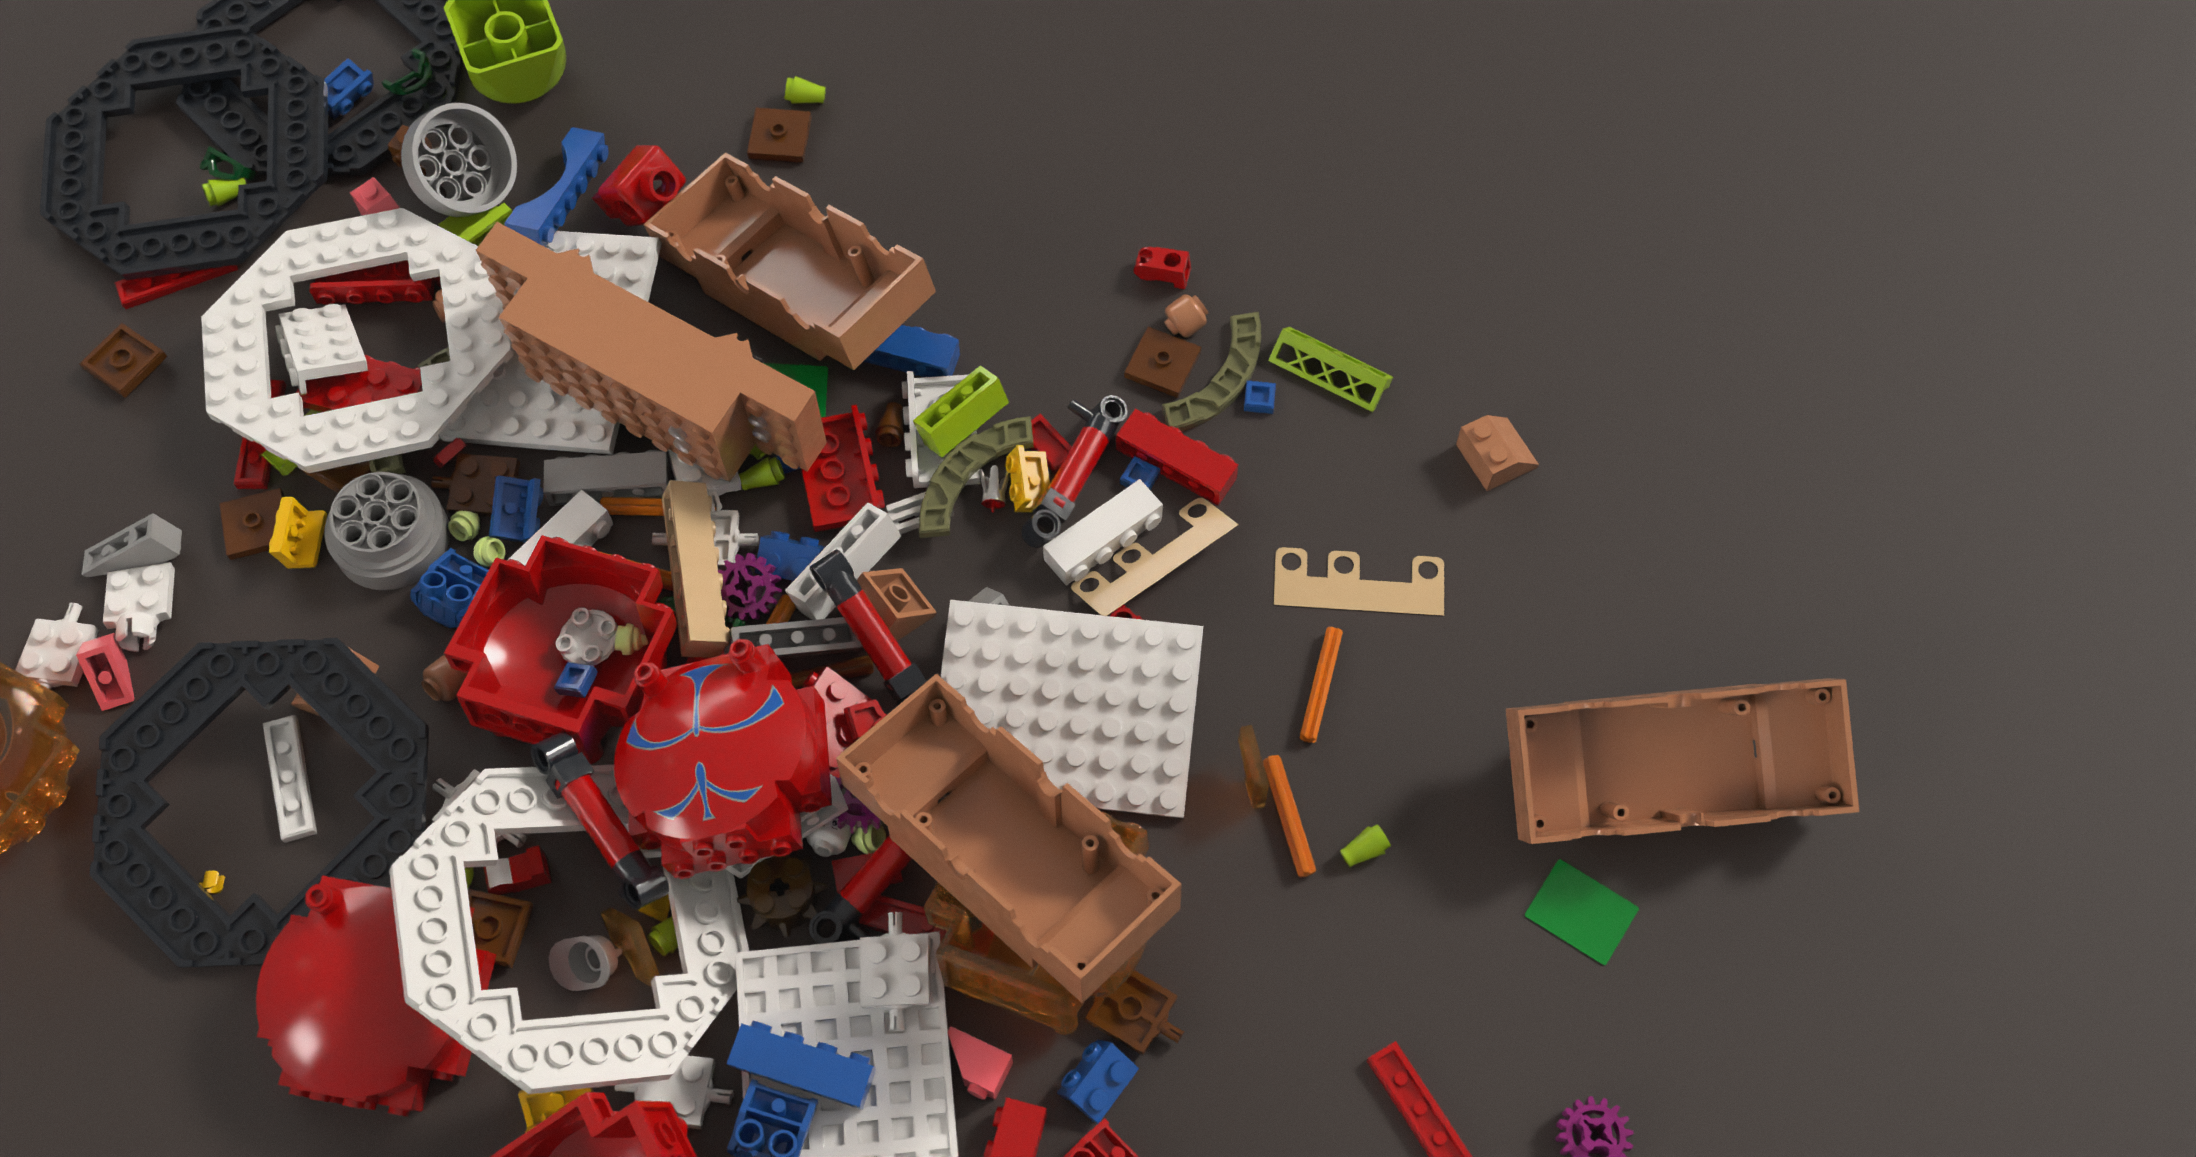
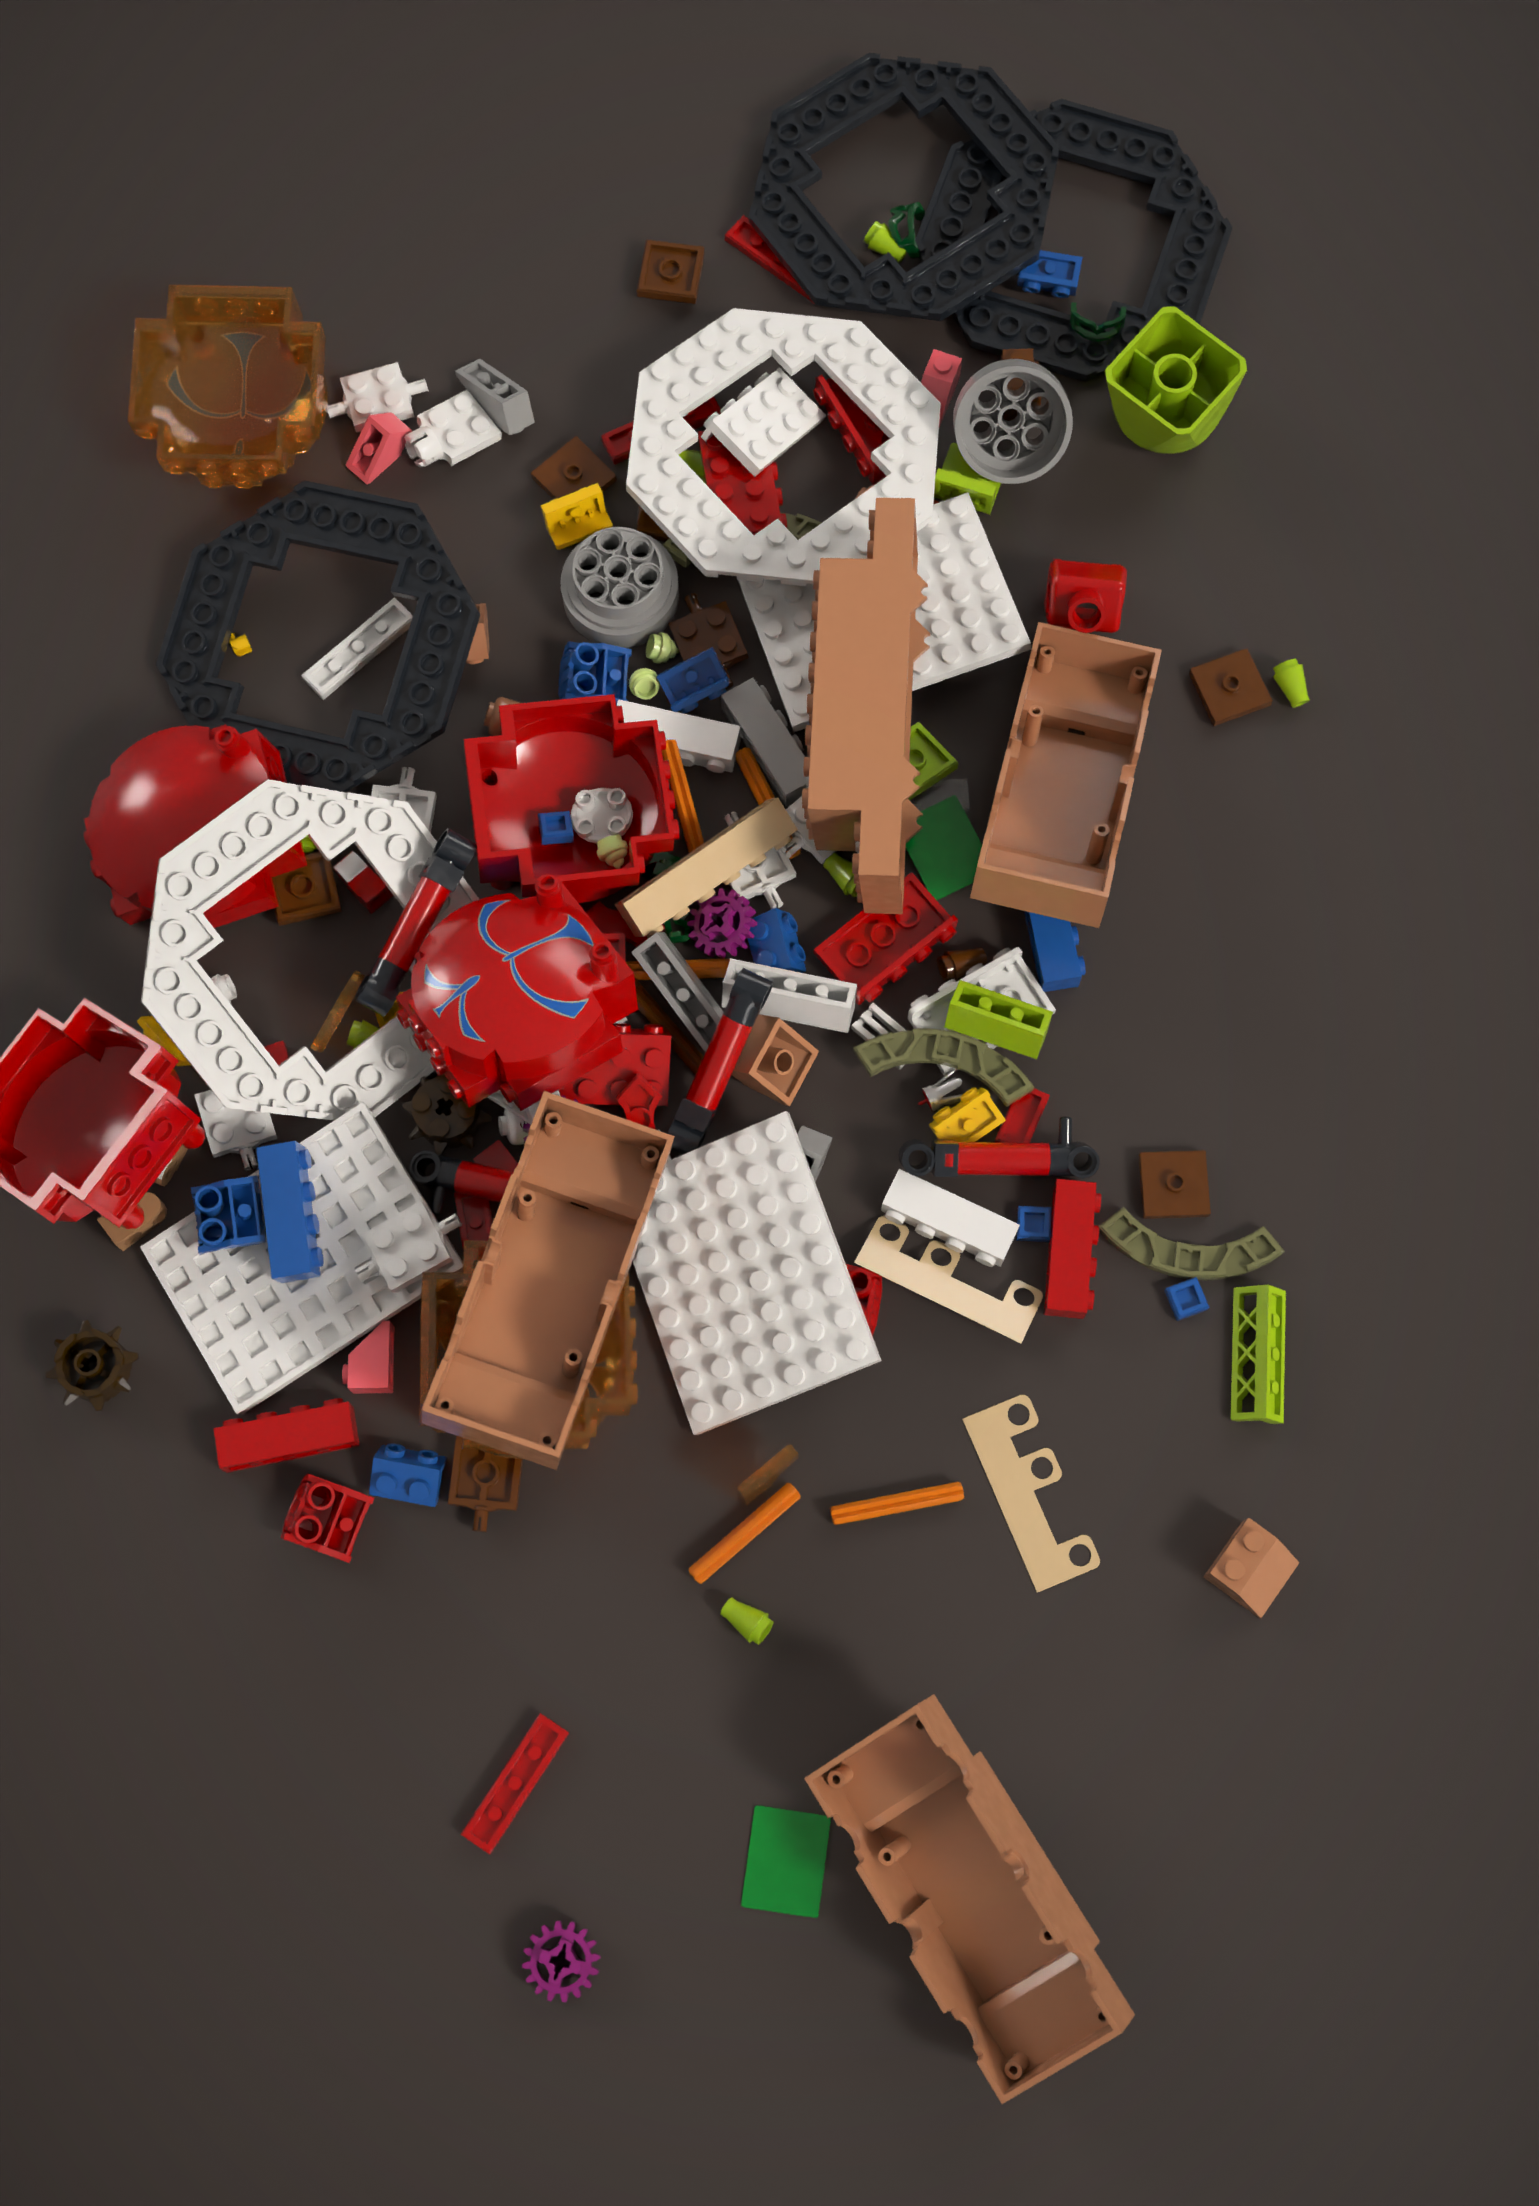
camera: 65 degrees right, 10 degrees up
(449, 452) = (723, 592): red tile -> none
(542, 217) = (983, 527): blue arch -> none
(583, 962) = (308, 982): light grey piece -> none
(1163, 265) = (1284, 1132): red leg -> none
(1186, 315) = (1236, 1181): nougat head -> none

